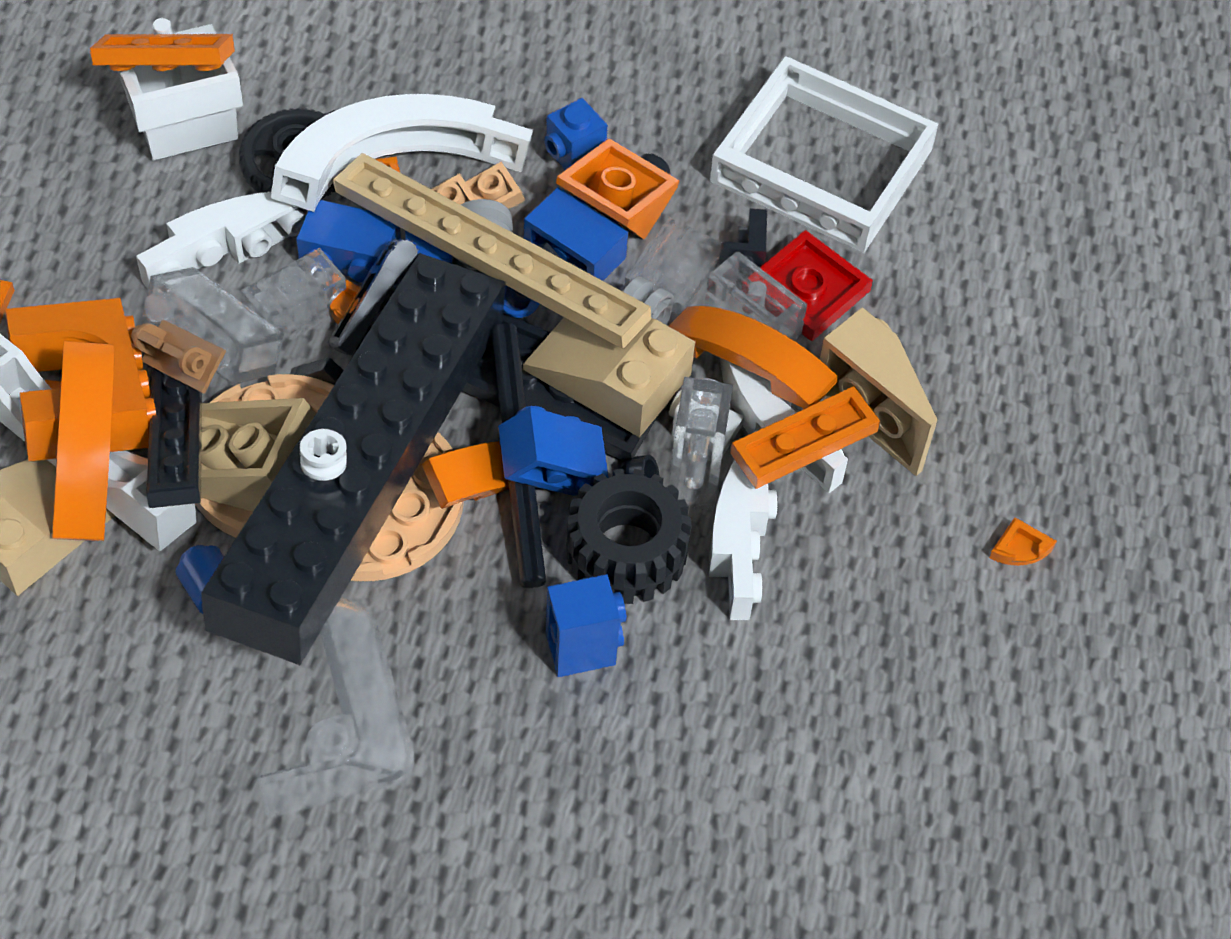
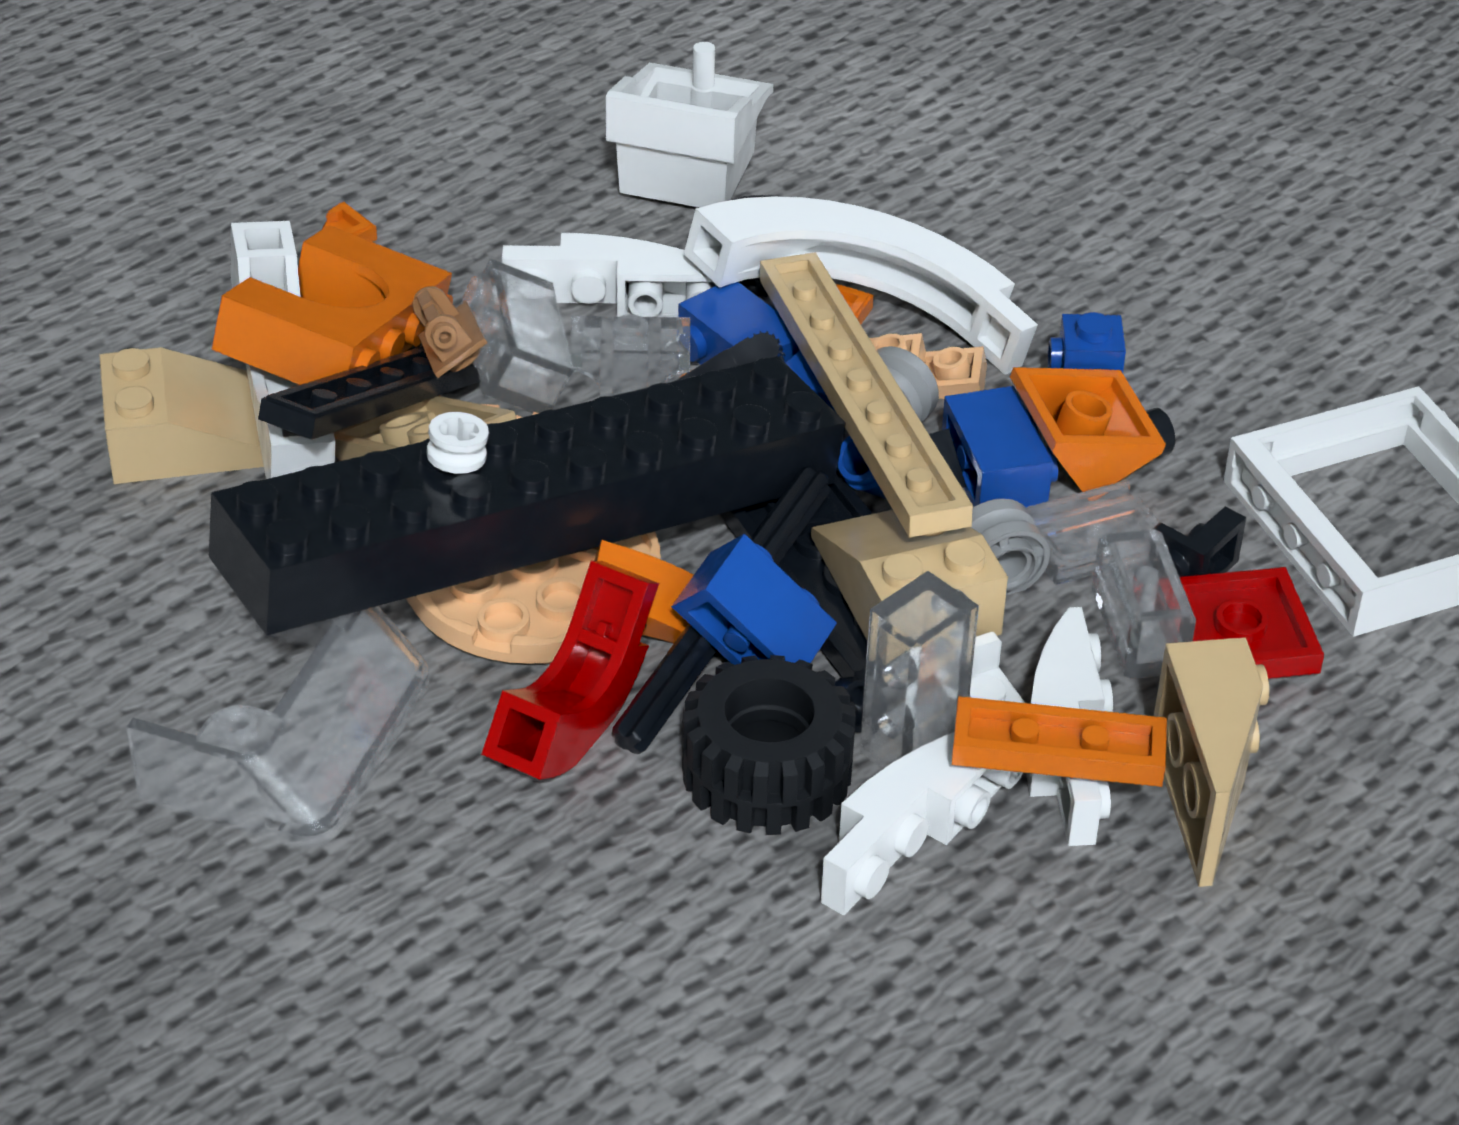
camera: 40 degrees right, 15 degrees down
(83, 441) = (262, 344): orange slope -> none
(162, 51) = (683, 70): orange plate -> none
(482, 562) = (585, 686): none -> red arch
(584, 625) = (621, 789): blue brick -> none
(789, 367) = (1093, 639): orange slope -> none
(1022, 543) = (1267, 1023): orange tile -> none

